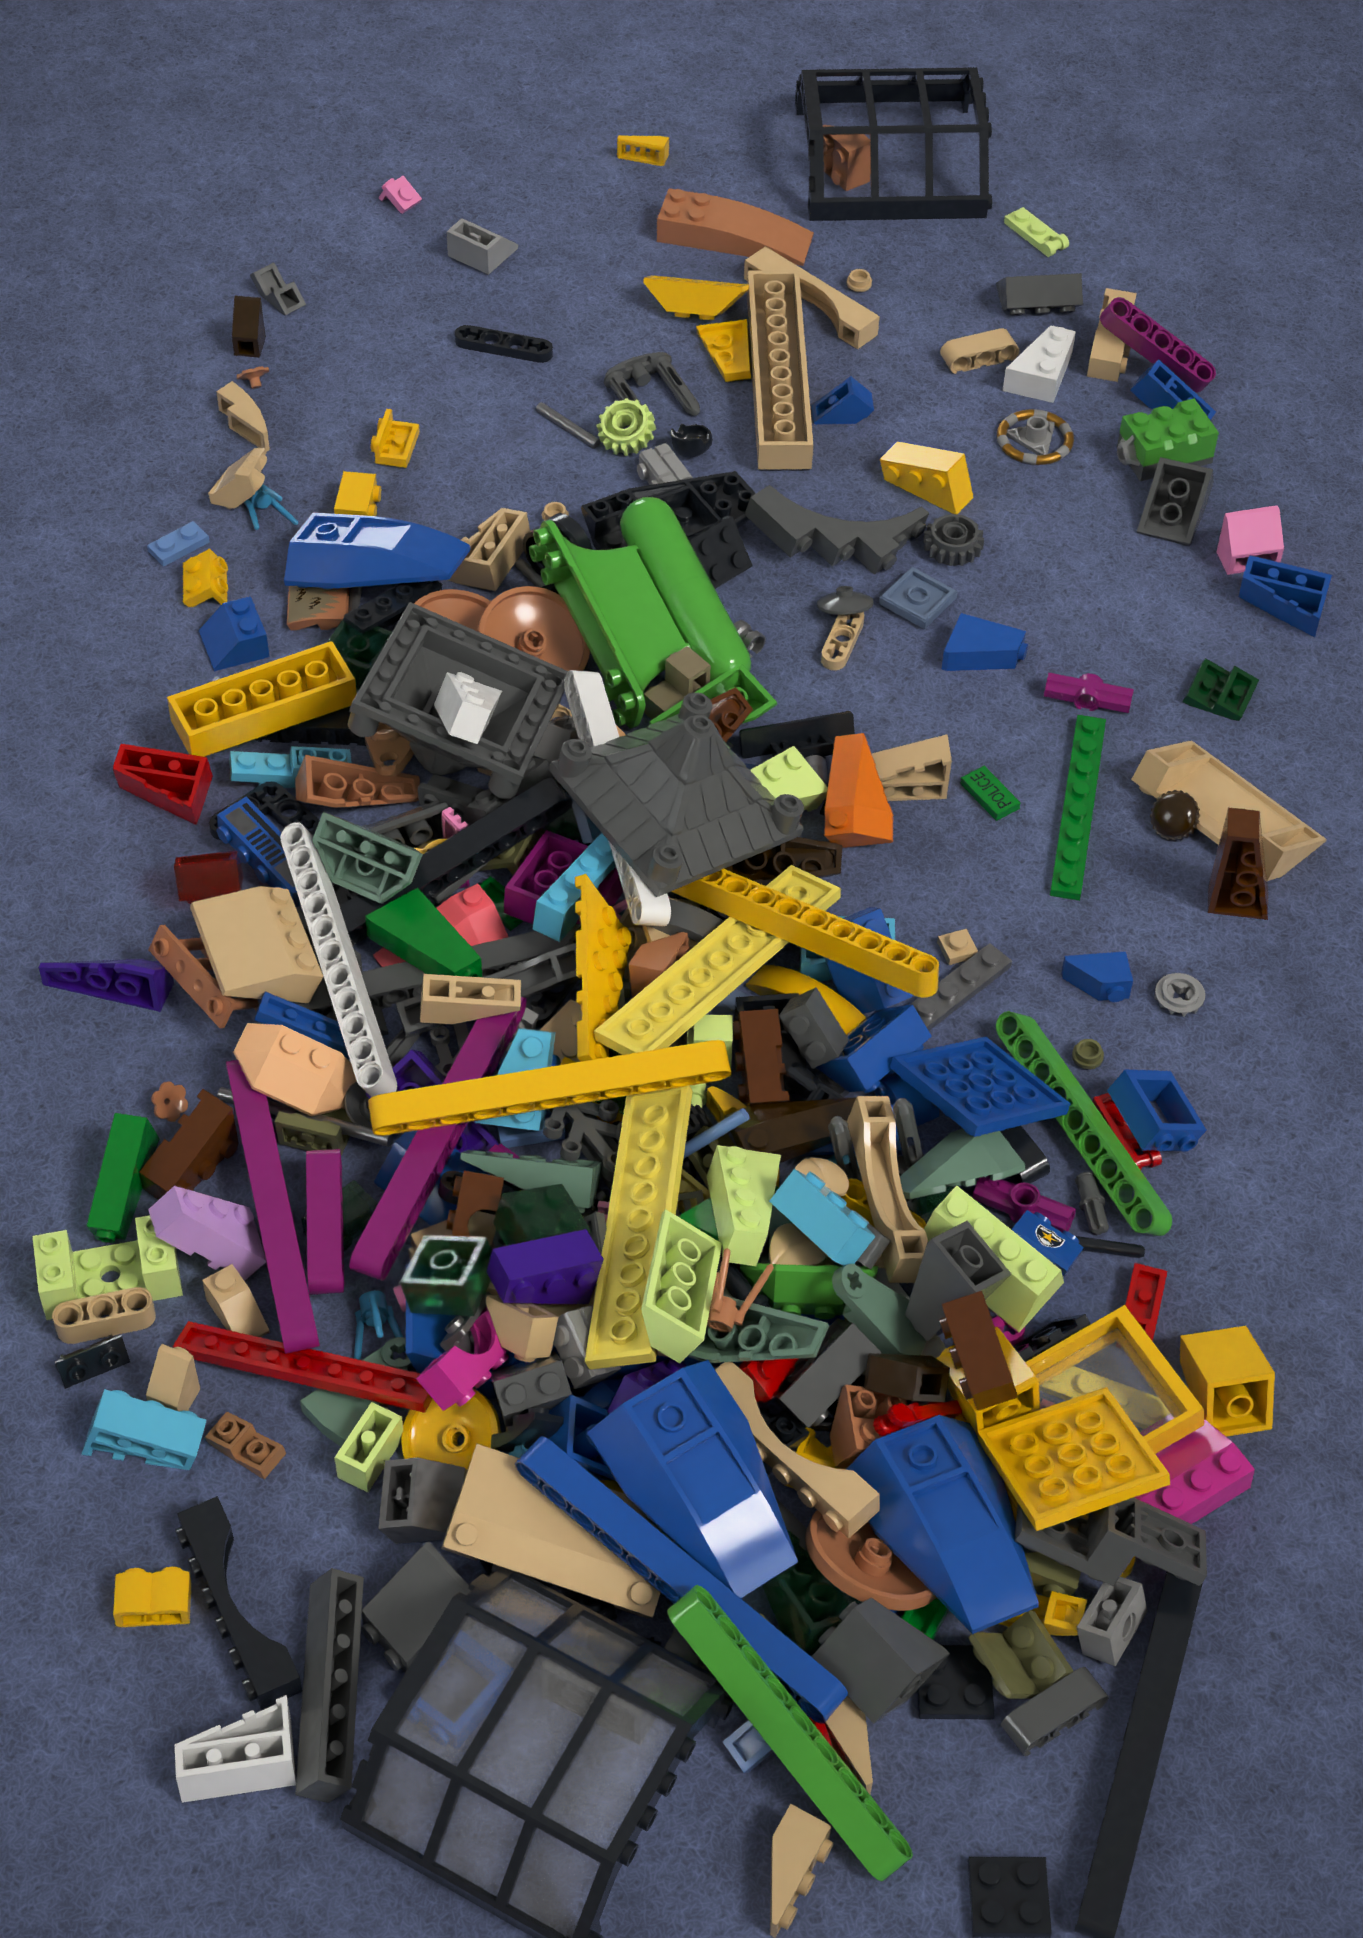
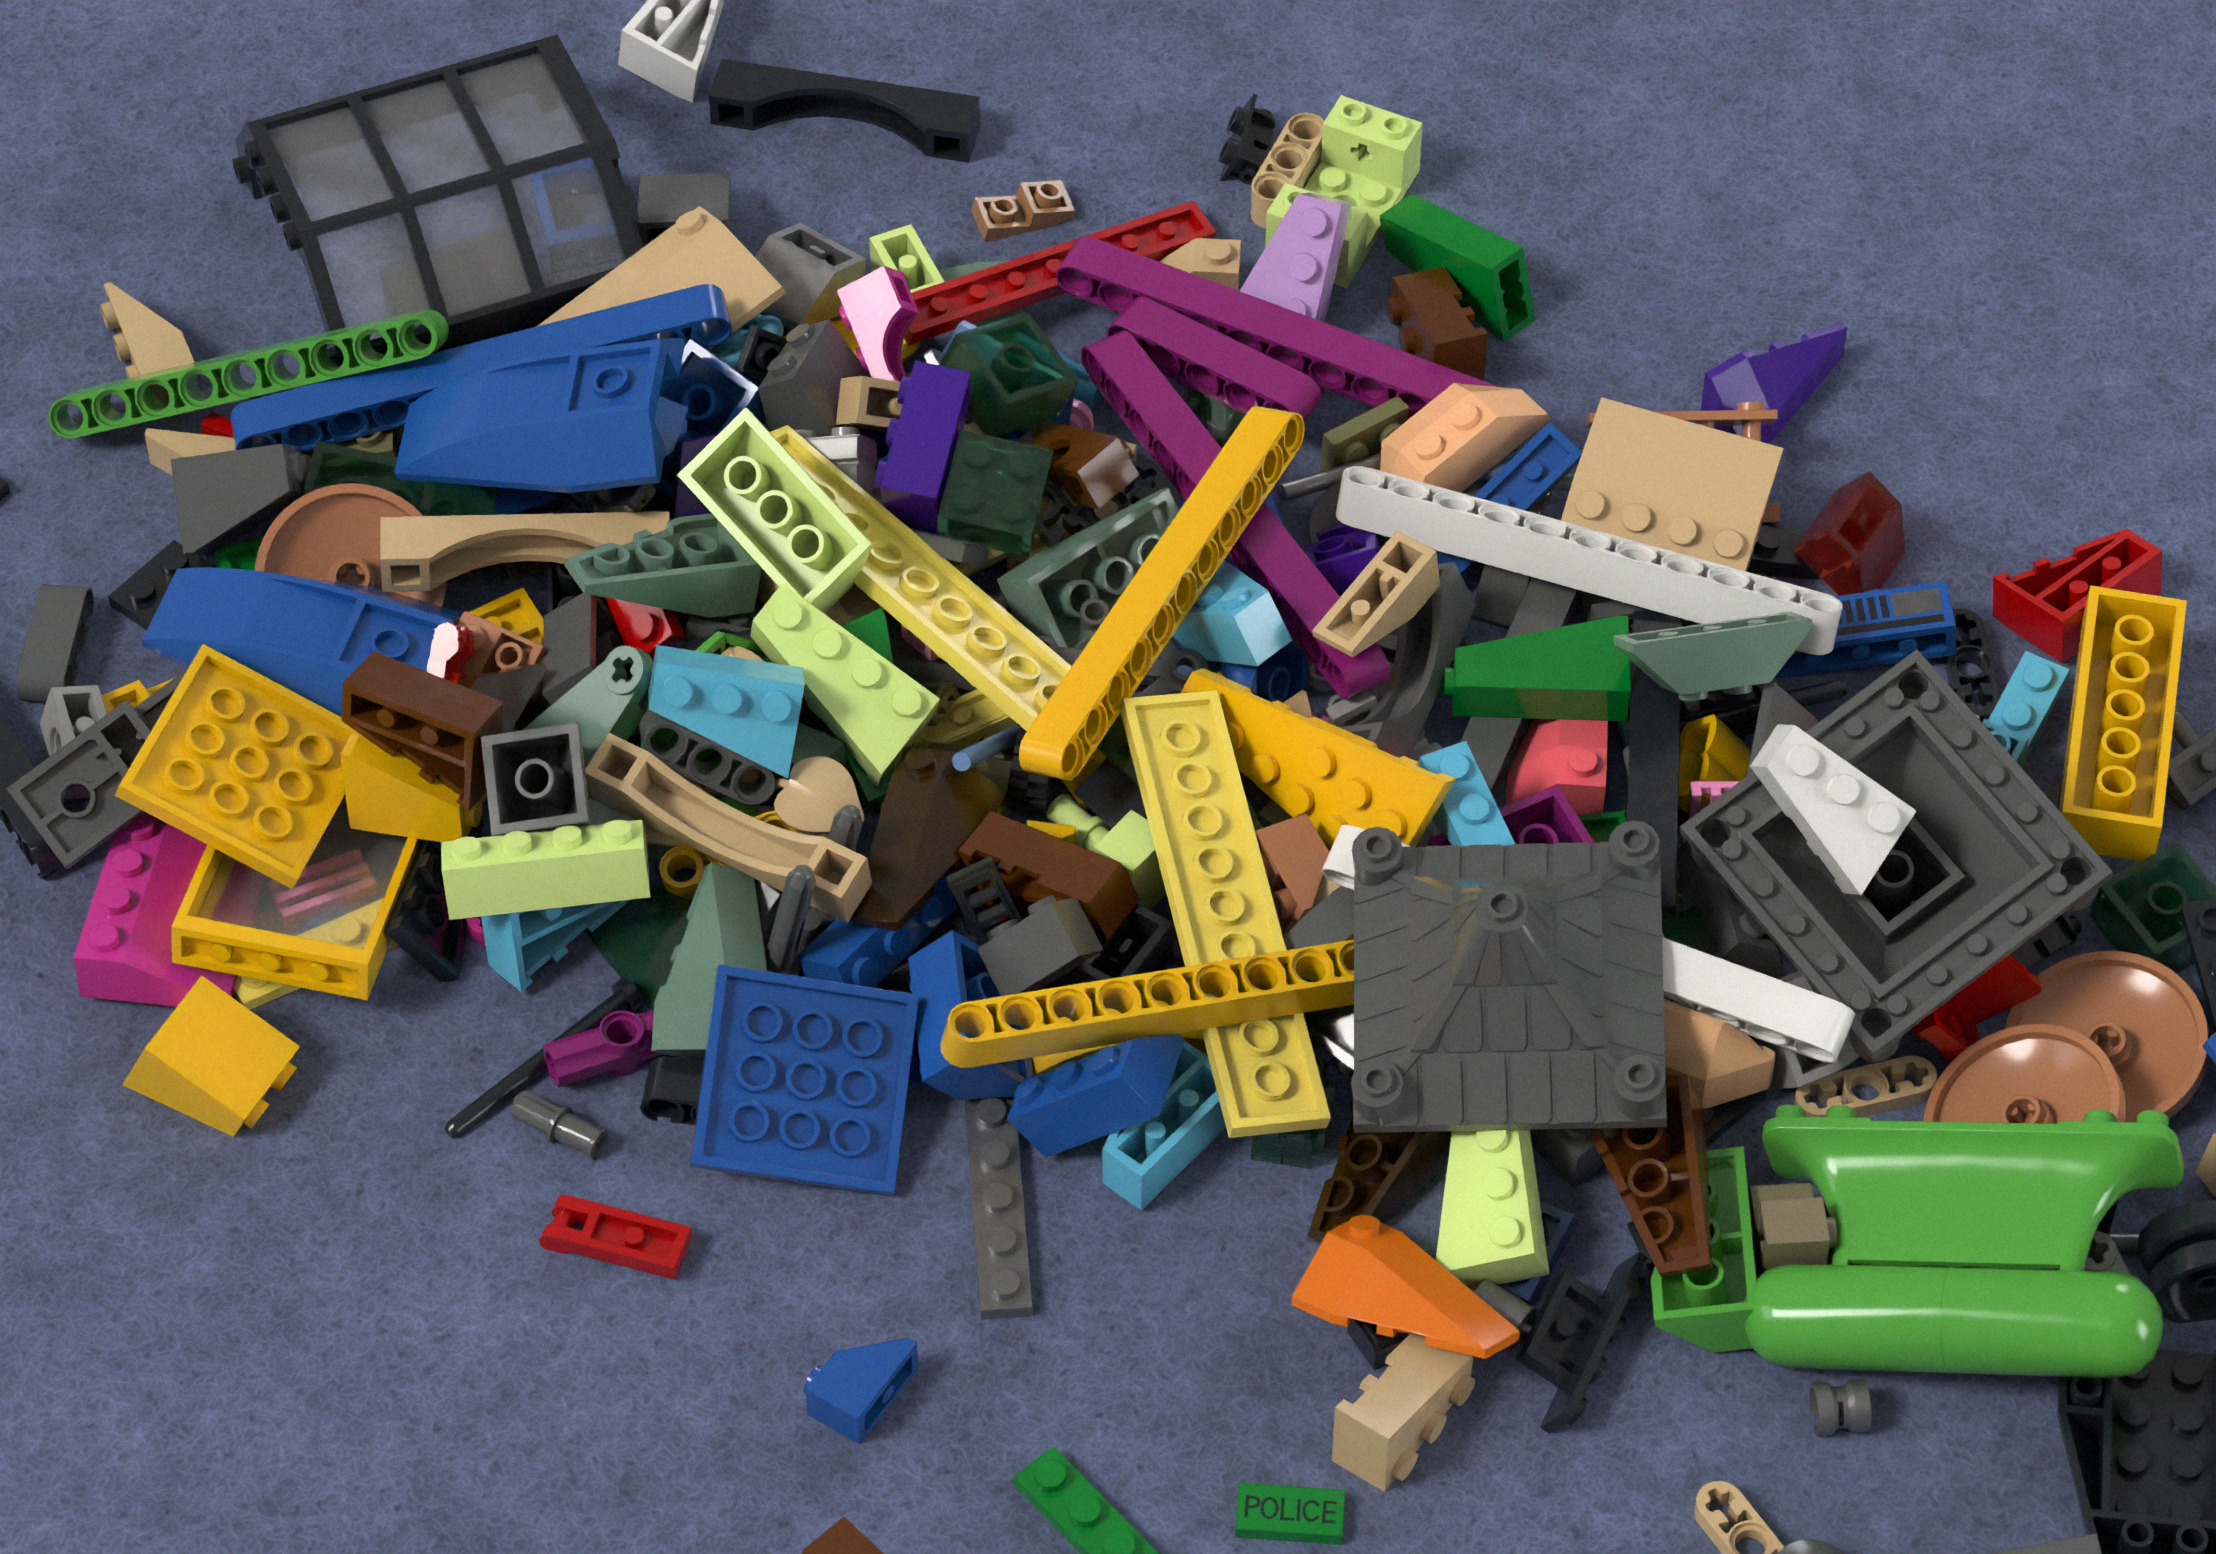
camera: 130 degrees right, 0 degrees up
(144, 1430) = (1106, 123): medium azure wedge -> none
(152, 1597) = (916, 51): yellow brick -> none
(169, 1101) = (1539, 359): nougat plant -> none
(173, 1379) = (1140, 174): tan slope -> none
(330, 1686) = (686, 120): dark grey brick -> none
(721, 551) = (2041, 1472): black plate -> none
(723, 1309) = (705, 534): nougat plant -> none
(957, 946) = (1063, 1274): tan plate -> none
(1021, 1658) = (116, 622): olive bracket -> none
(1056, 1246) = (535, 987): blue slope -> none
(1088, 1054) = (763, 1287): olive plate -> none
(1093, 1129) = (669, 1185): bright green beam -> none
(1132, 1097) = (647, 1274): blue window -> none
(1146, 1295) = (381, 1065): red plate -> none
(1181, 984) = (737, 1450): light grey gear -> none

